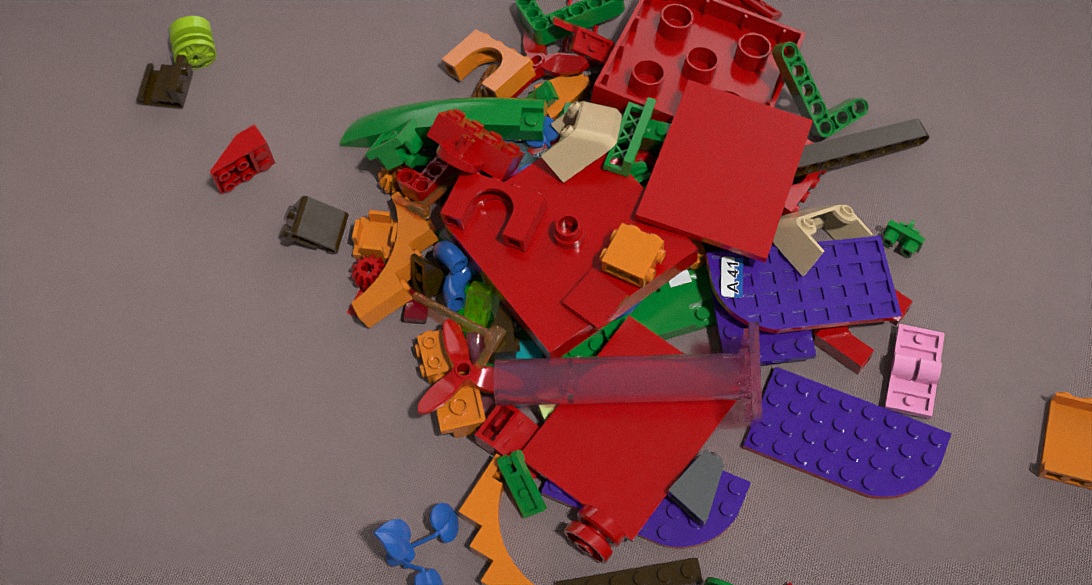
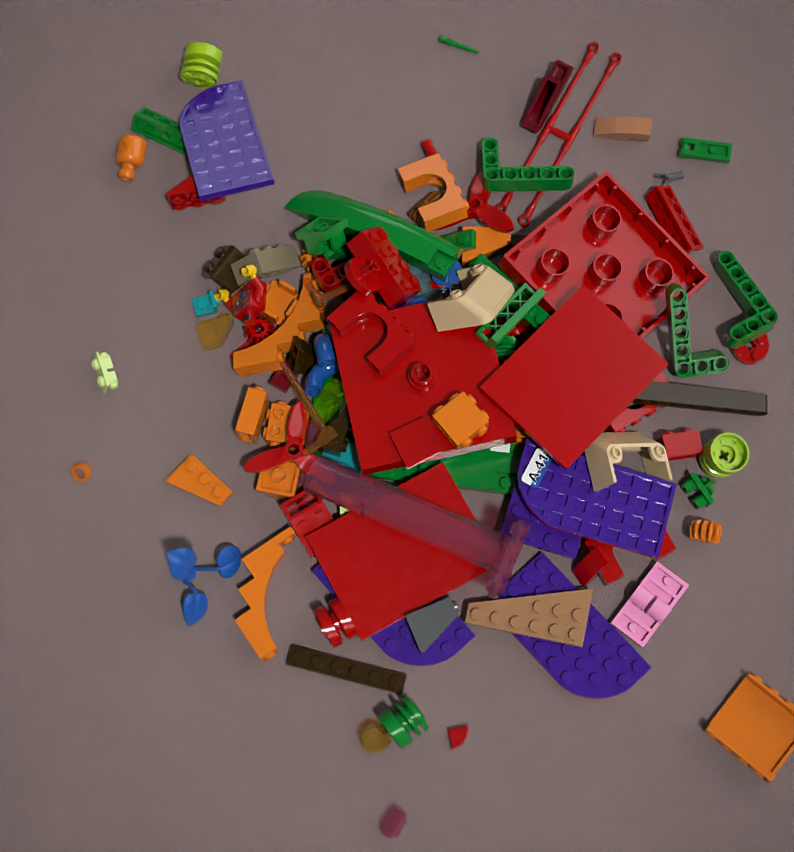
camera: 20 degrees right, 10 degrees up
(153, 157) = (130, 155): none -> orange piece
(166, 86) = (165, 92): dark brown piece -> none
(184, 121) = (155, 129): none -> green fence
(210, 377) = (101, 365): none -> yellowish green hinge
(241, 493) = (85, 467): none -> orange piece
(250, 101) = (224, 142): none -> dark purple plate
(300, 270) = (205, 305): none -> teal bracket
(321, 293) = (215, 332): none -> clear yellow slope
(344, 199) = (268, 262): none -> dark tan wedge
(344, 241) = (248, 299): none -> red torso
(373, 452) = (198, 480): none -> orange wing
(401, 357) = (252, 415): none -> orange brick
(462, 30) = (429, 148): none -> red pin
(521, 484) = (298, 558): green plate -> none
(587, 43) = (523, 207): red plate -> none
(815, 429) = (547, 617): none -> medium nougat wing
(835, 358) = (590, 567): none -> red slope
(864, 198) = (681, 445): none -> red brick
(869, 91) = (754, 355): none -> red plate
(870, 45) = (756, 314): none -> green beam
(910, 191) = (733, 452): none -> lime wheel
(932, 272) = (705, 531): none -> orange gear

